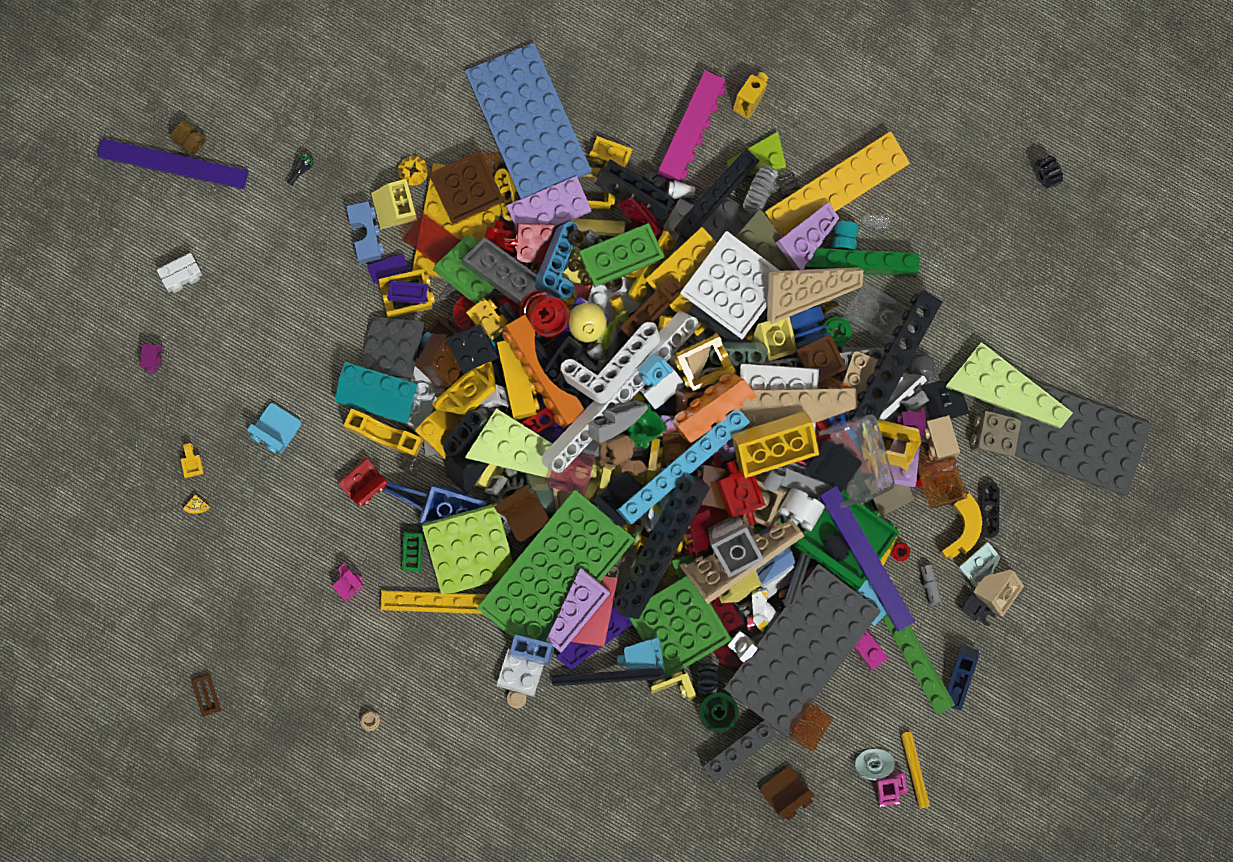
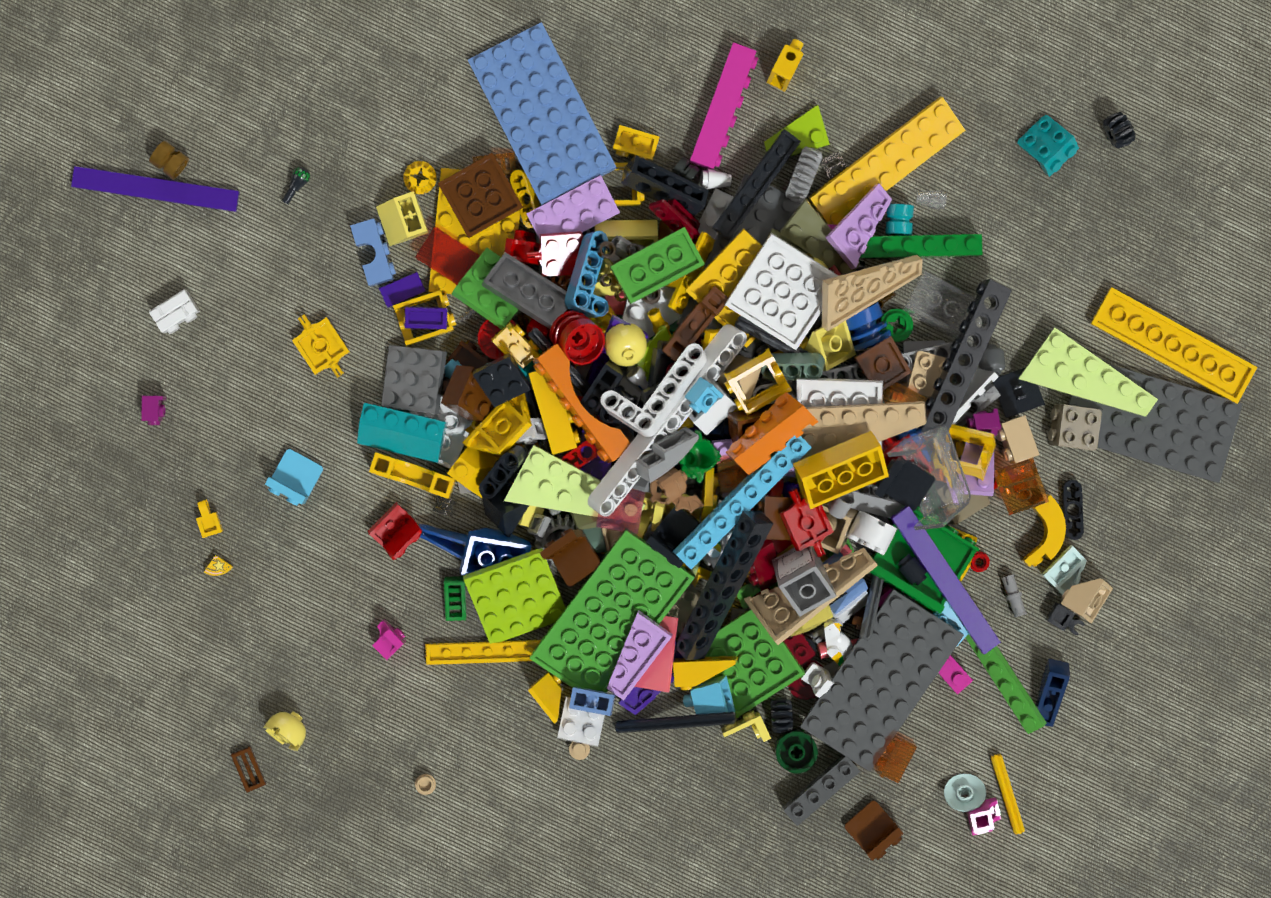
camera: 10 degrees left, 10 degrees up
(245, 658) = (287, 729): none -> light yellow cylinder
(309, 312) = (321, 346): none -> yellow plate
(492, 643) = (548, 694): none -> yellow slope
(629, 630) = (694, 672): none -> yellow slope
(985, 181) = (1049, 144): none -> teal bracket
(1090, 367) = (1173, 345): none -> yellow plate

